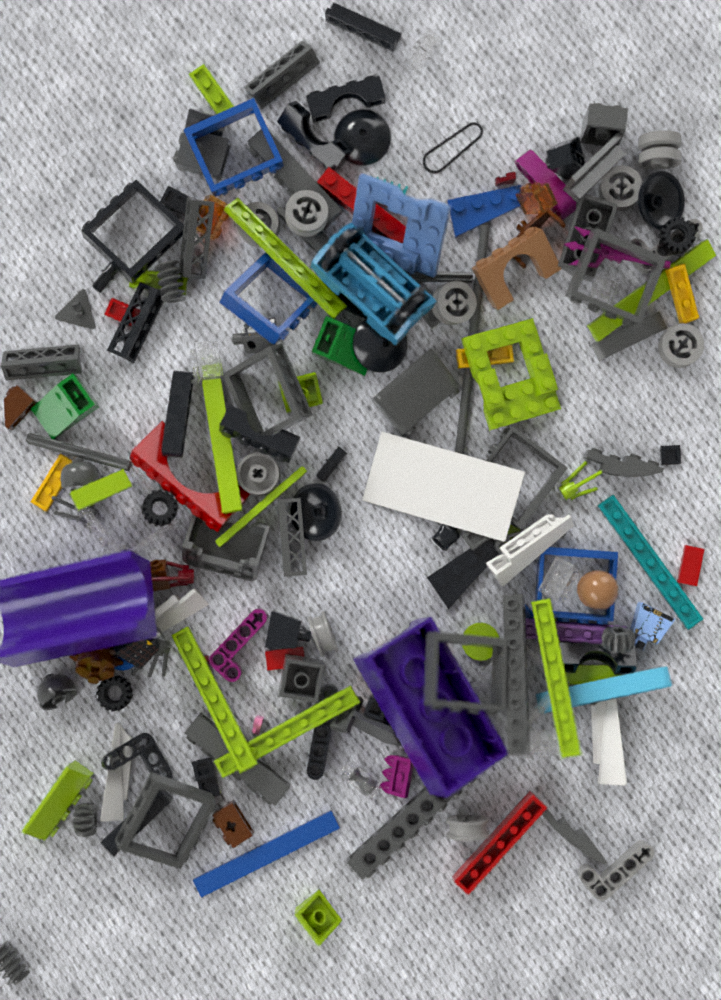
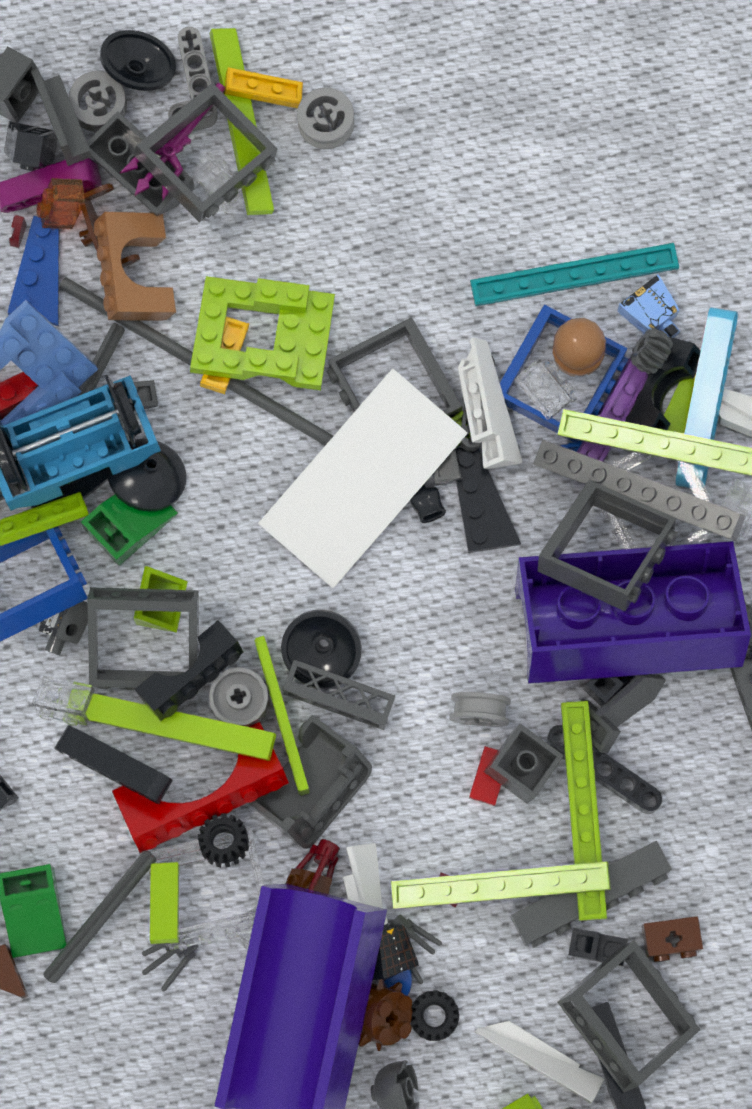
camera: 70 degrees left, 10 degrees down
(51, 484) = (123, 972): yellow tile -> none
(78, 473) = (128, 927): dark grey cylinder -> none
(144, 752) = (526, 1011): black beam -> none
(241, 640) = (442, 820): magenta beam -> none
(257, 725) = (559, 849): bright pink tile -> none
(266, 853) = (729, 915): blue tile -> none
(285, 631) = (455, 758): black torso -> none
(331, 464) = (269, 604): black axle -> none
(367, 785) = (700, 743): clear piece -> none
(399, 776) = (703, 698): magenta plate -> none
(416, 392) = (231, 458): dark grey windscreen -> none
(463, 301) = (144, 348): light grey wheel -> none
(479, 629) = (590, 529): lime tile -> none
(569, 490) = (439, 329): lime plant -> none
(628, 336) = (284, 175): dark grey slope -> none
(630, 466) = (445, 245): dark grey slope -> none
(659, 150) = (75, 34): light grey wheel -> none
(670, 455) = (454, 191): black tile -> none
(682, 225) = (190, 46): black tyre -> none
(690, 565) = (601, 228): red tile -> none

